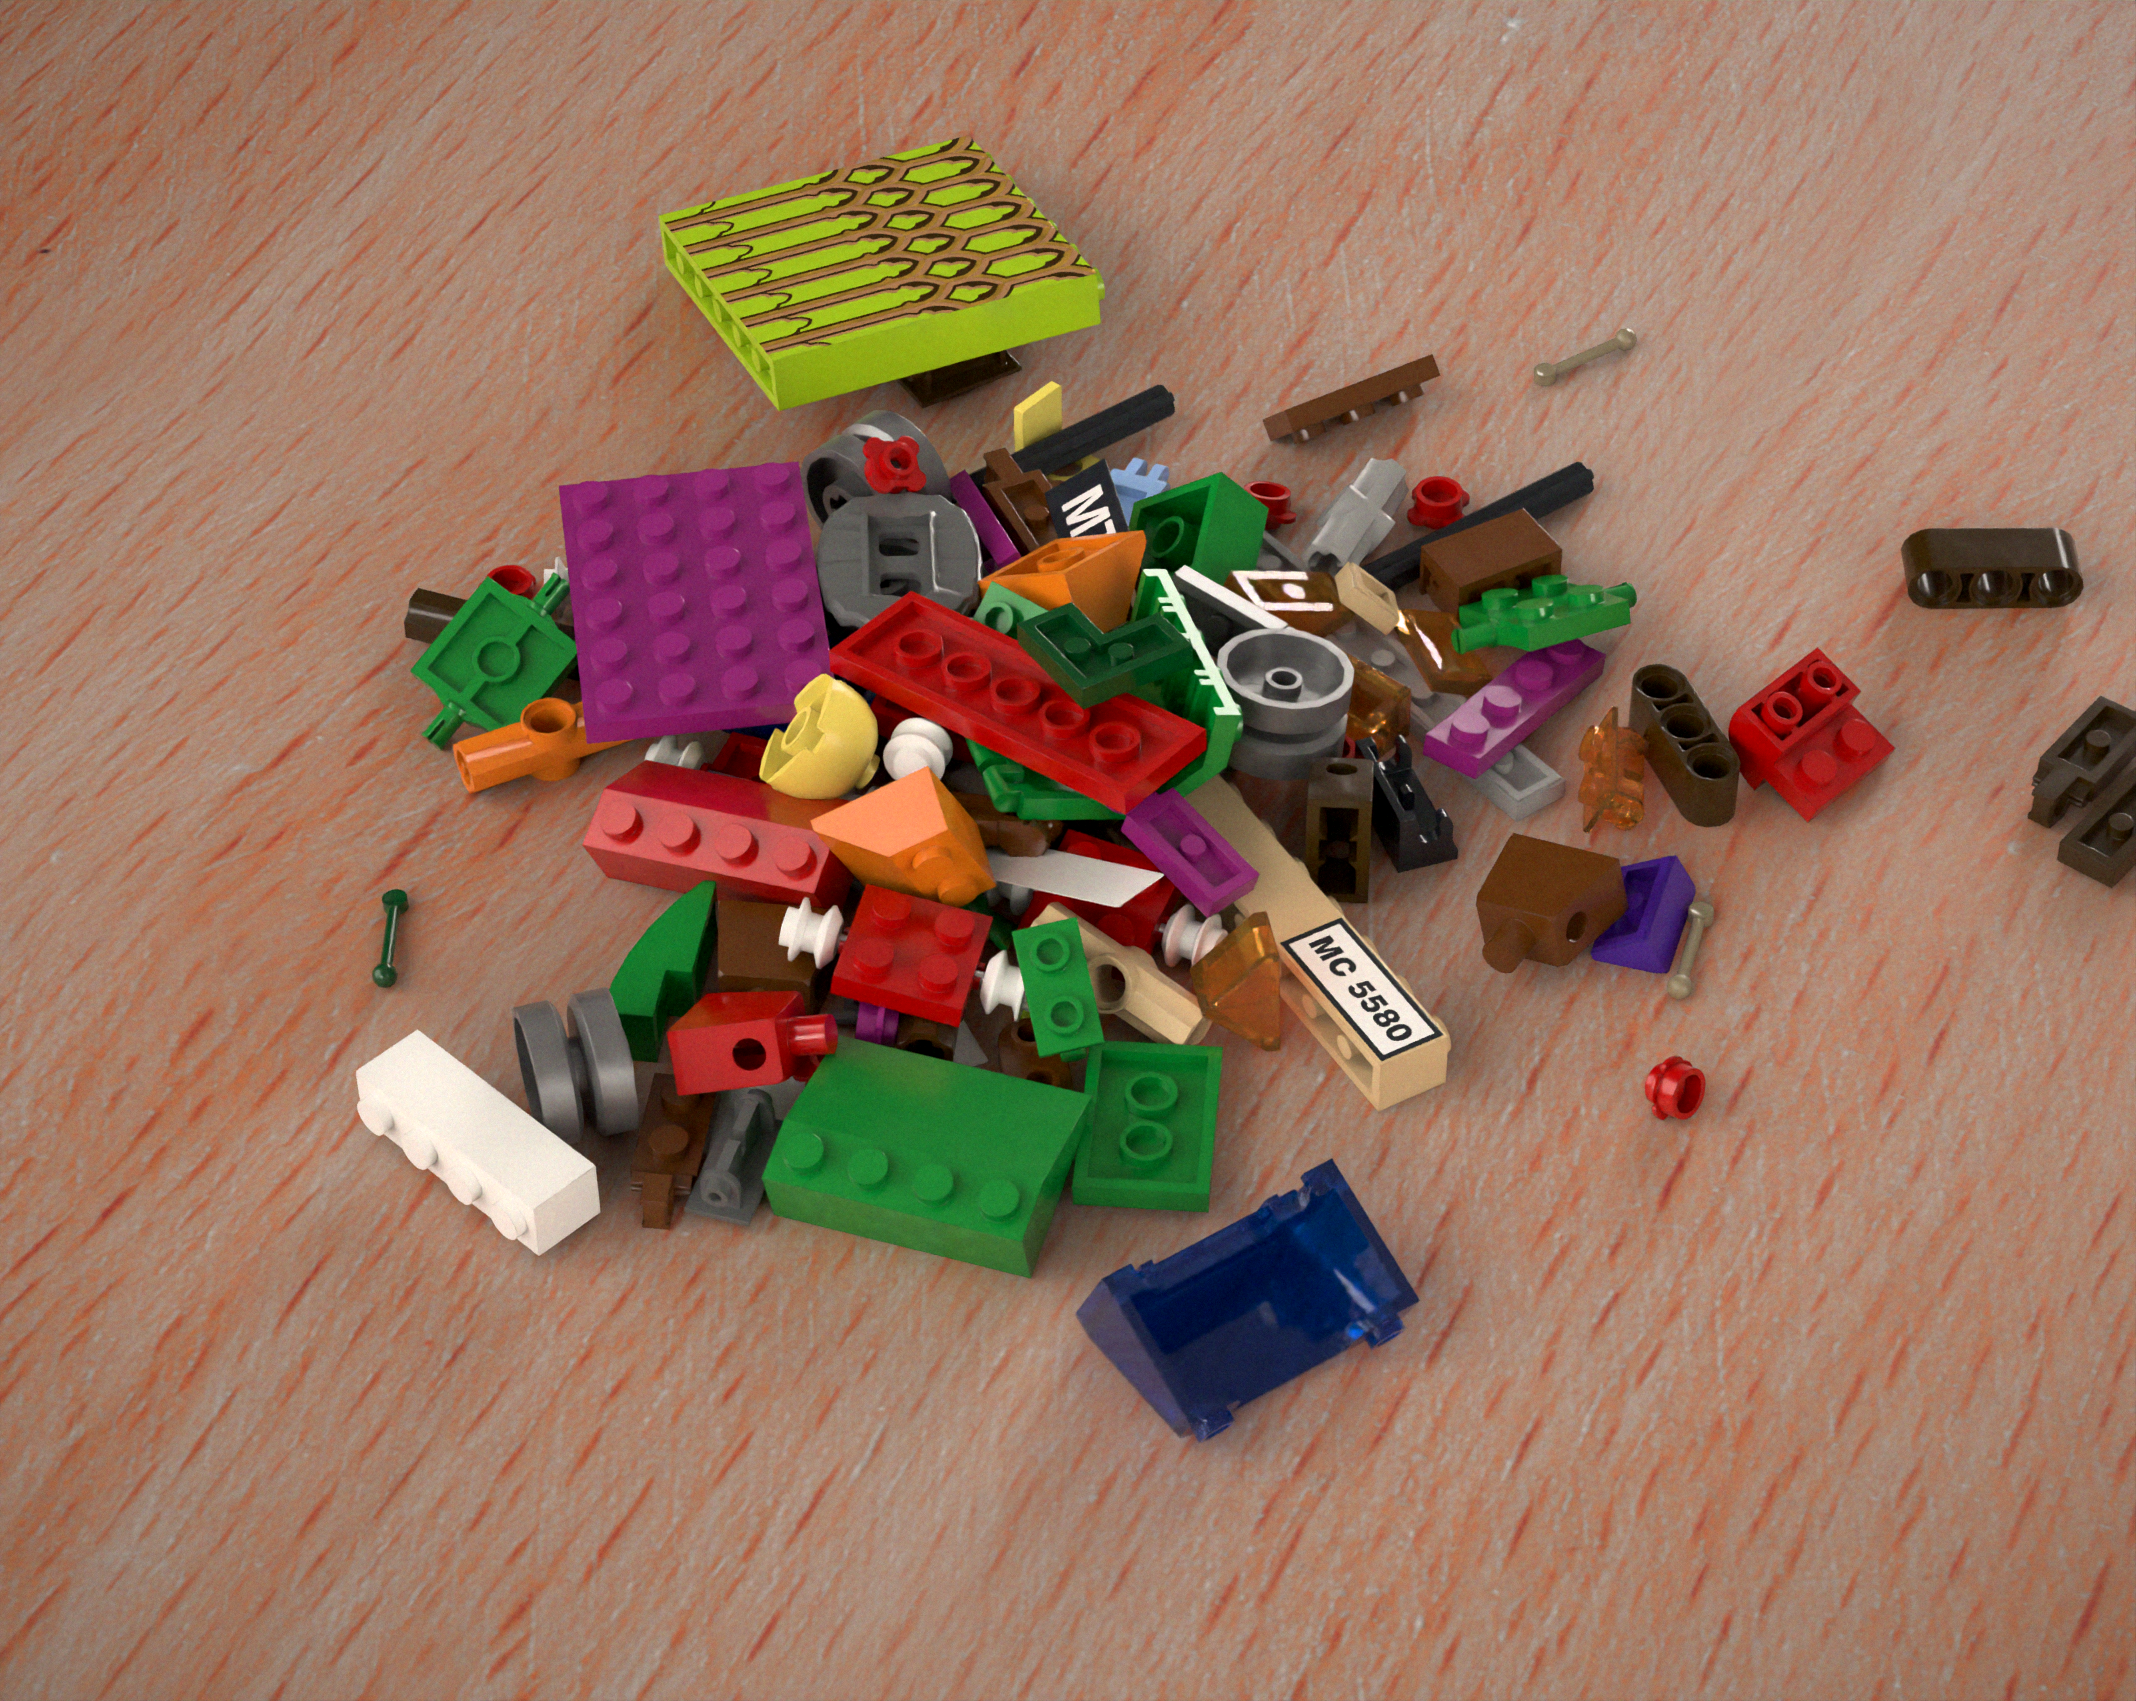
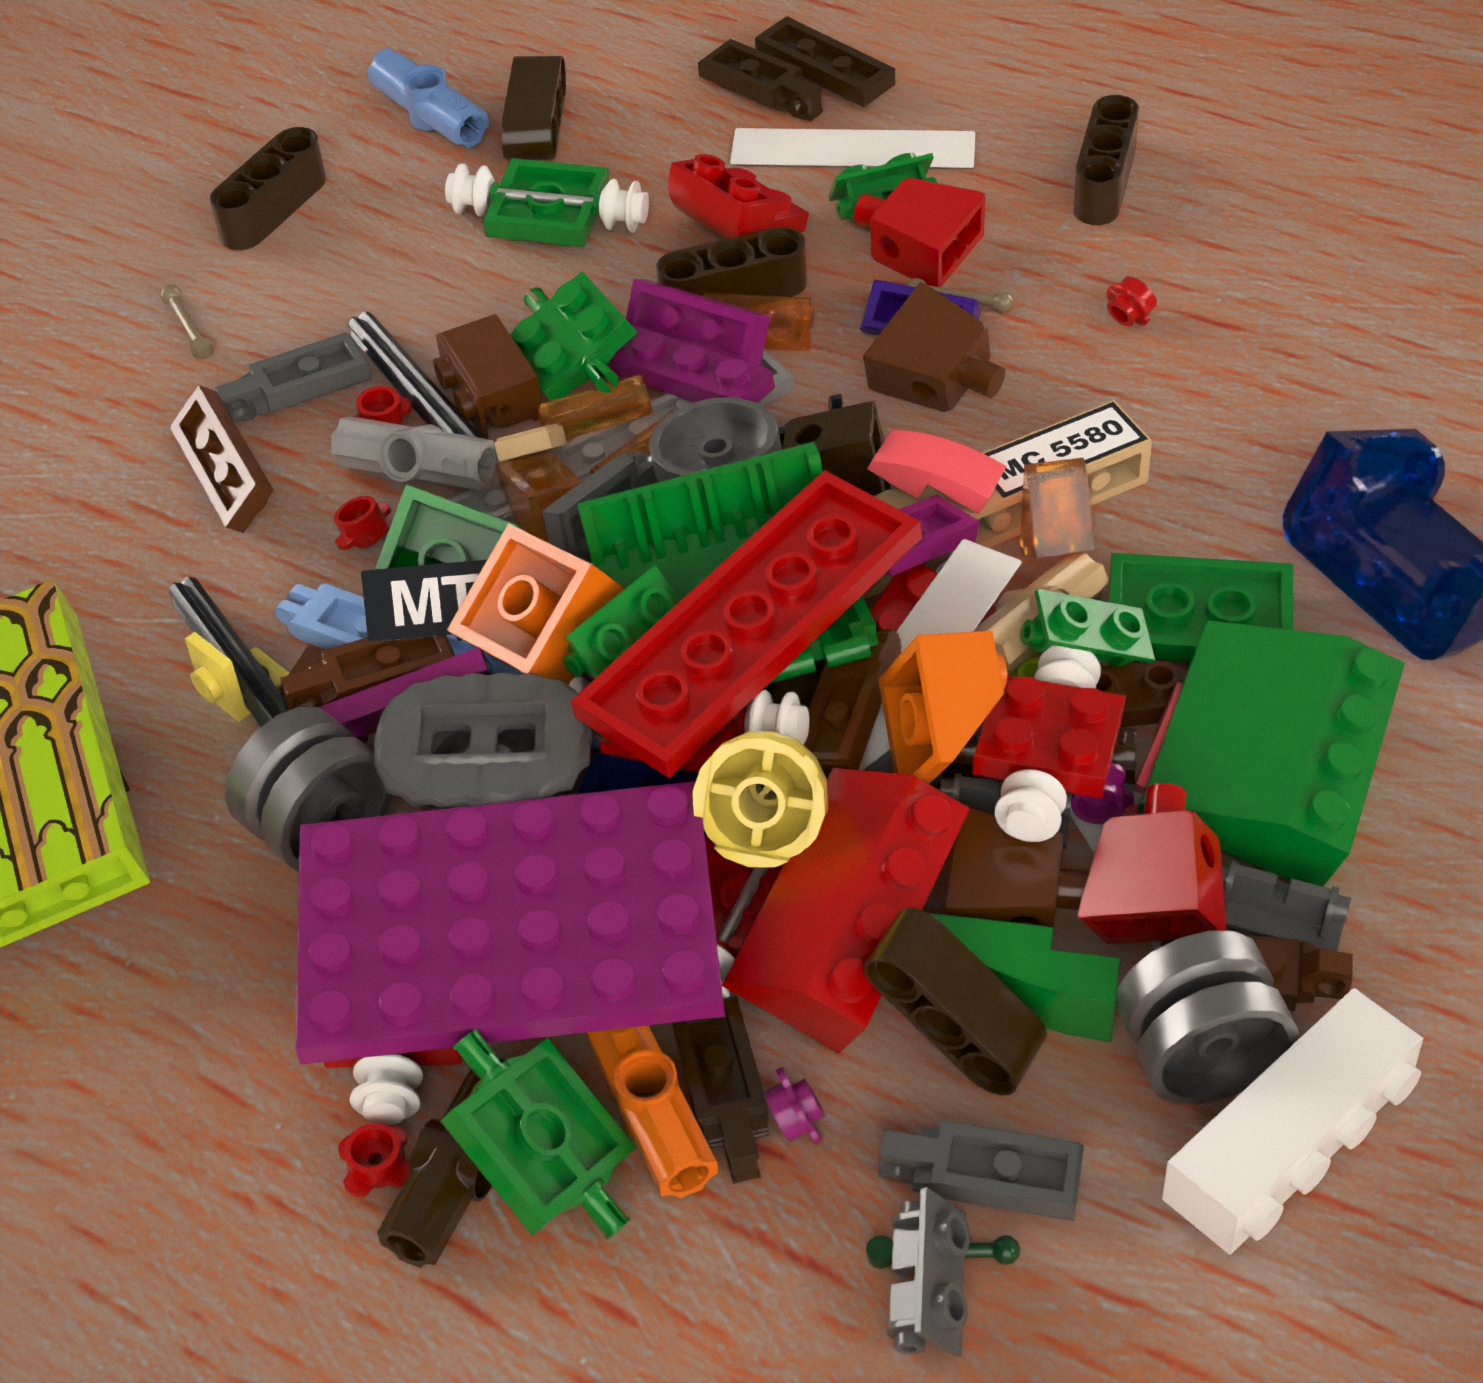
camera: 85 degrees left, 5 degrees up
(351, 914) = (932, 1242): none -> dark grey hinge
(457, 957) = (987, 1167): none -> dark grey hinge
(522, 818) = (795, 1107): none -> magenta plate
(551, 788) = (725, 1087): none -> dark brown hinge
(606, 899) = (955, 1001): none -> dark brown beam
(883, 475) = (353, 726): red plate -> none
(1102, 665) = (739, 531): dark green plate -> none
(1294, 870) = (917, 459): none -> coral slope
(1485, 437) = (295, 377): none -> dark grey hinge
(1574, 713) = (698, 320): none -> magenta plate
(1783, 902) = (923, 228): none -> red torso
(1800, 377) = (268, 188): none -> dark brown beam
(1809, 587) = (546, 201): none -> green plate
(1887, 889) = (876, 181): none -> green hinge
(1954, 1068) = (1105, 159): none -> dark brown beam
(1981, 862) = (849, 147): none -> white sticker
(1991, 476) = (428, 98): none -> medium blue piece

